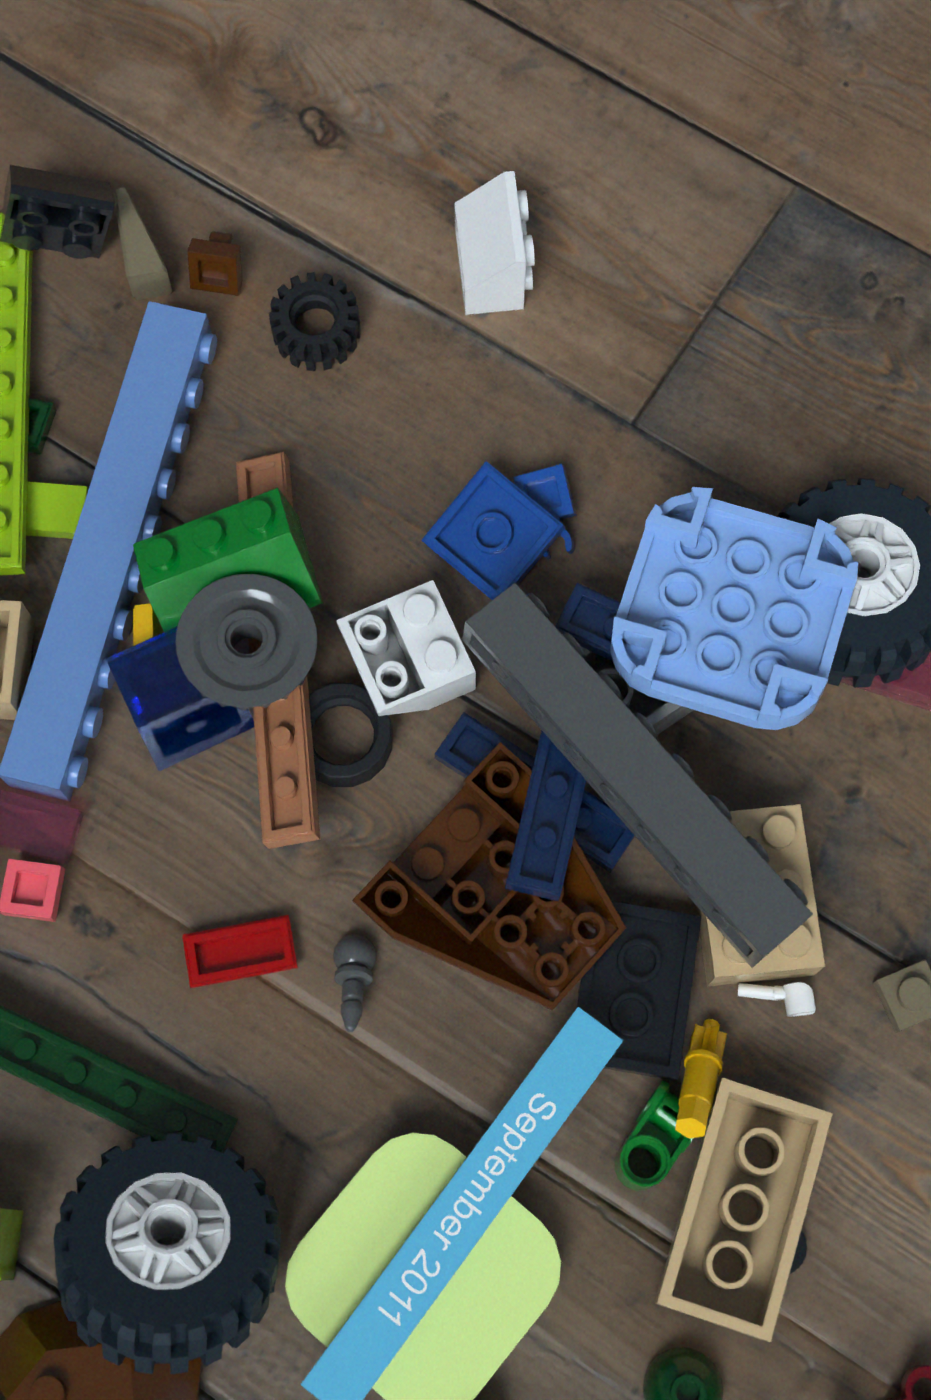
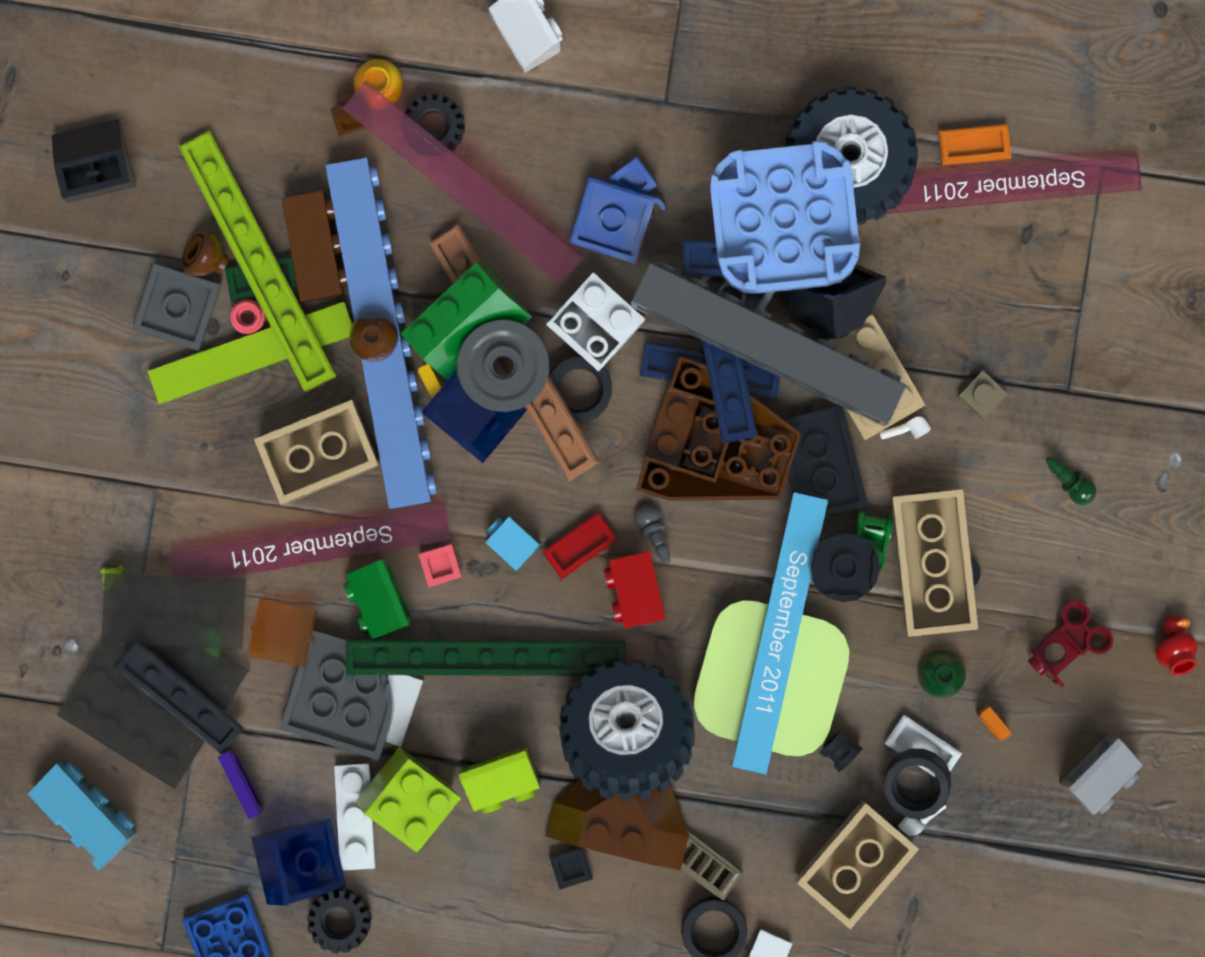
camera: 25 degrees left, 15 degrees up
(56, 212) = (234, 127): black slope -> none
(80, 400) = (314, 246): none -> reddish brown brick
(95, 536) = (373, 337): none -> reddish brown brick
(142, 261) = (301, 132): dark tan slope -> none
(145, 902) = (511, 542): none -> medium azure brick
(272, 249) = (382, 76): none -> yellow piece
(285, 1047) = (635, 589): none -> red brick
(317, 401) = (462, 182): none -> clear pink tile
(605, 1151) = (844, 566): none -> black tile
(699, 1083) = (880, 499): yellow piece -> none
(755, 765) = (839, 306): none -> black slope

